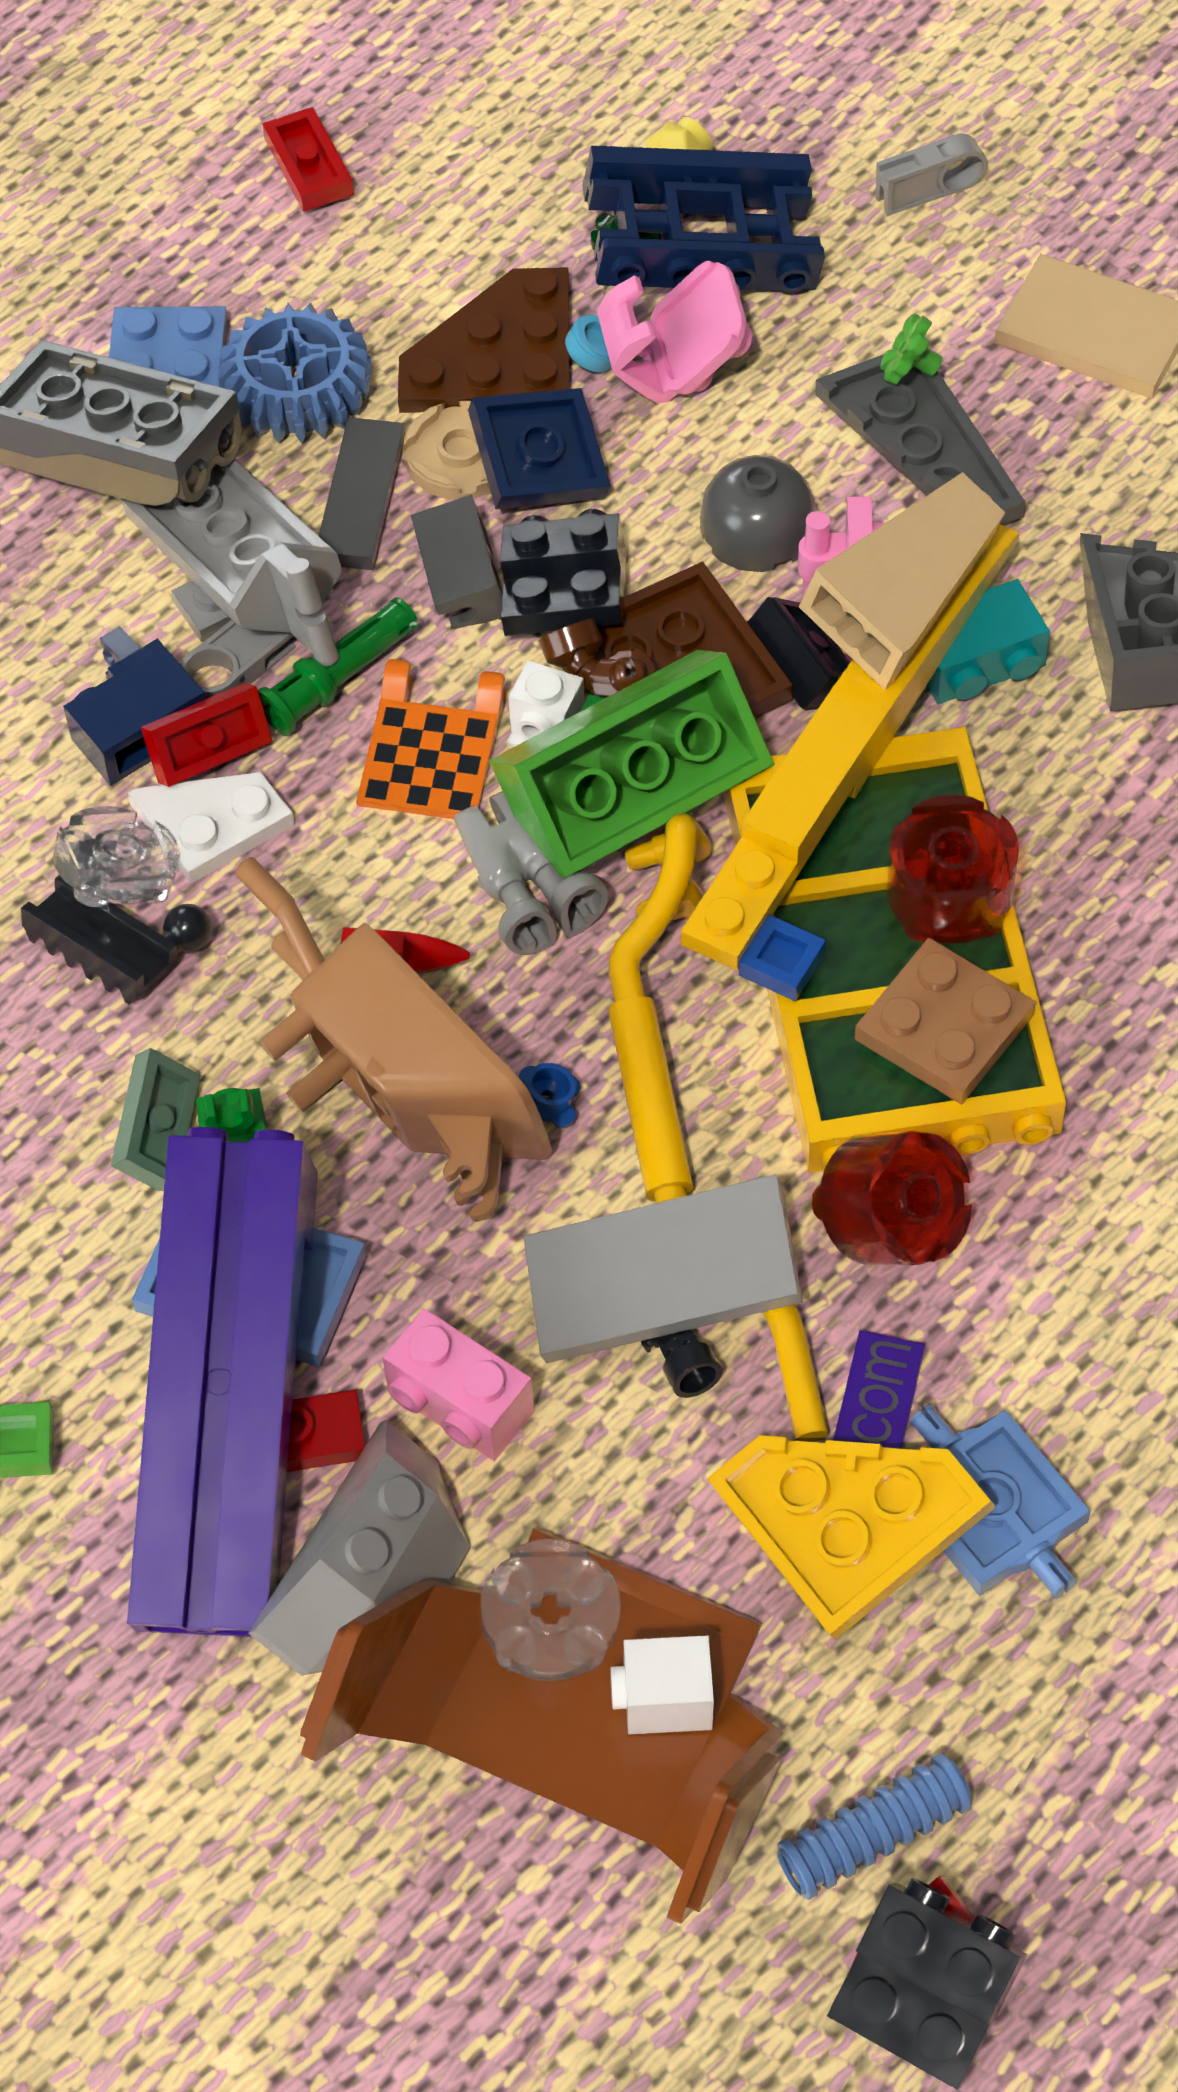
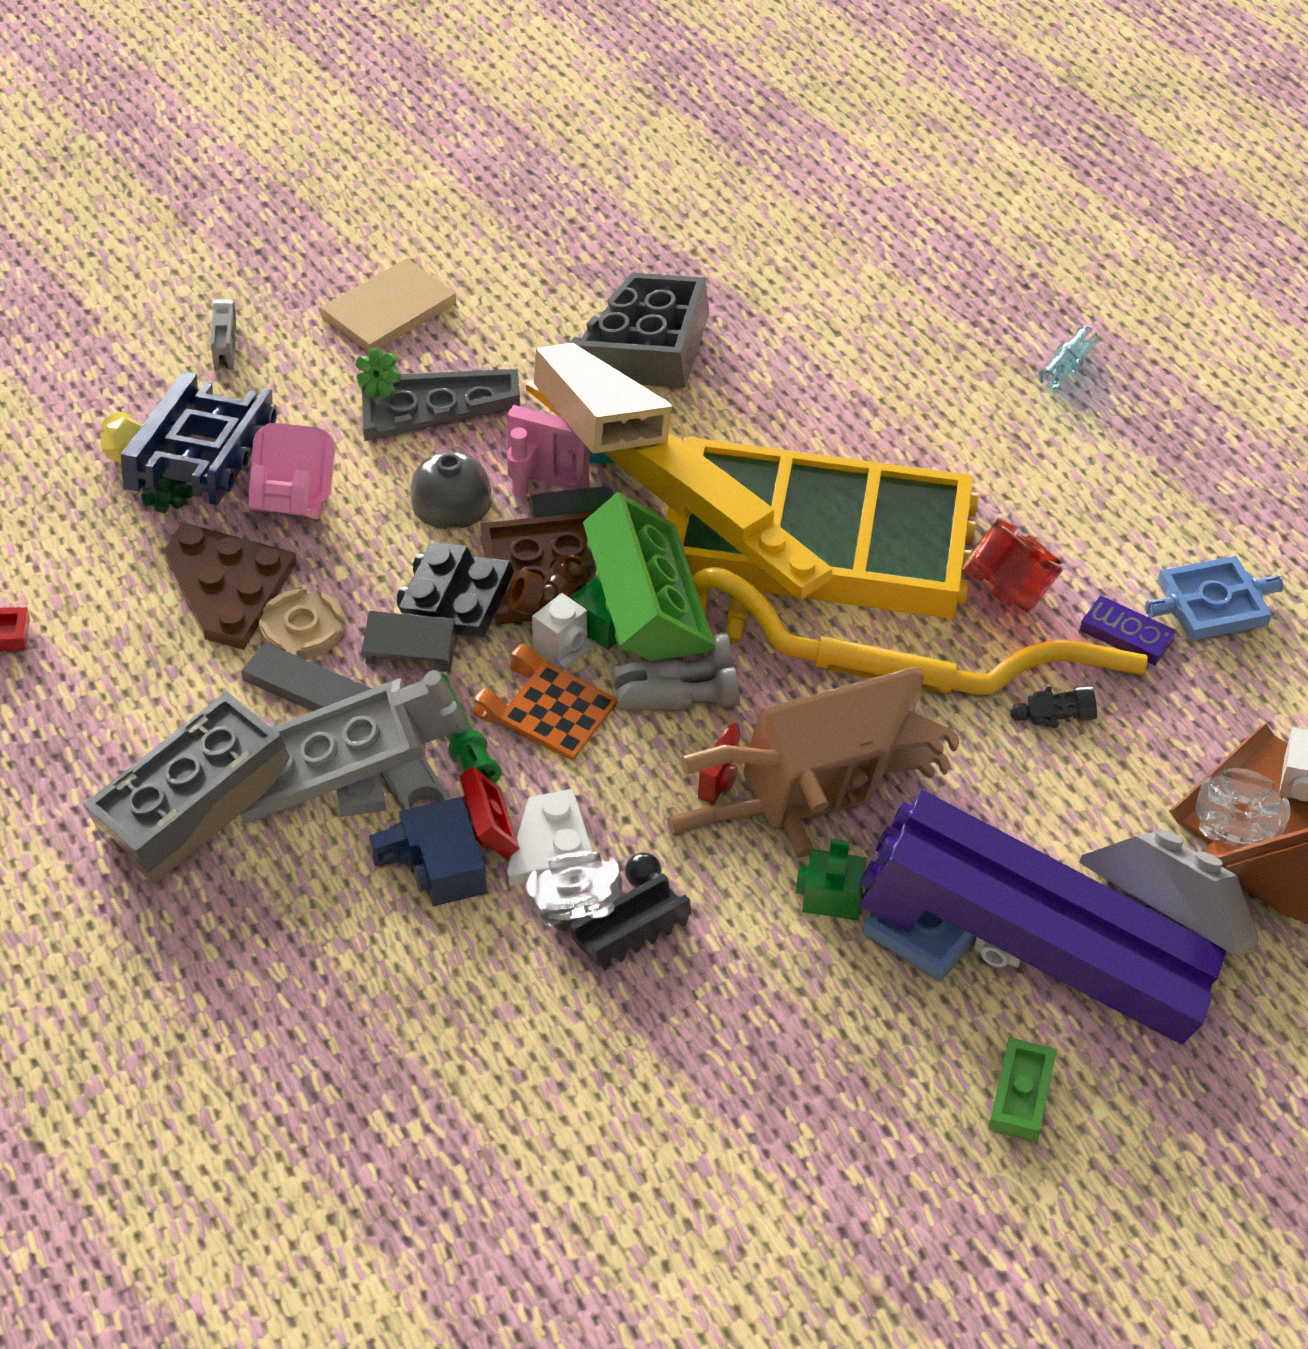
camera: 75 degrees left, 10 degrees down
(155, 1106) = (780, 920): sand green plate -> none
(171, 339) = (102, 753): medium blue plate -> none
(329, 366) = (186, 677): medium blue gear -> none
(458, 1385) = (1066, 811): bright pink brick -> none
(538, 448) = (339, 574): dark blue plate -> none
(587, 344) = (257, 527): medium azure tile -> none
(662, 1269) = (1017, 691): light grey tile -> none
(782, 957) = (836, 553): blue plate -> none
(848, 1516) = (1214, 656): yellow plate -> none
(945, 1020) = (900, 504): medium nougat plate -> none
(952, 870) = (809, 458): clear red brick -> none

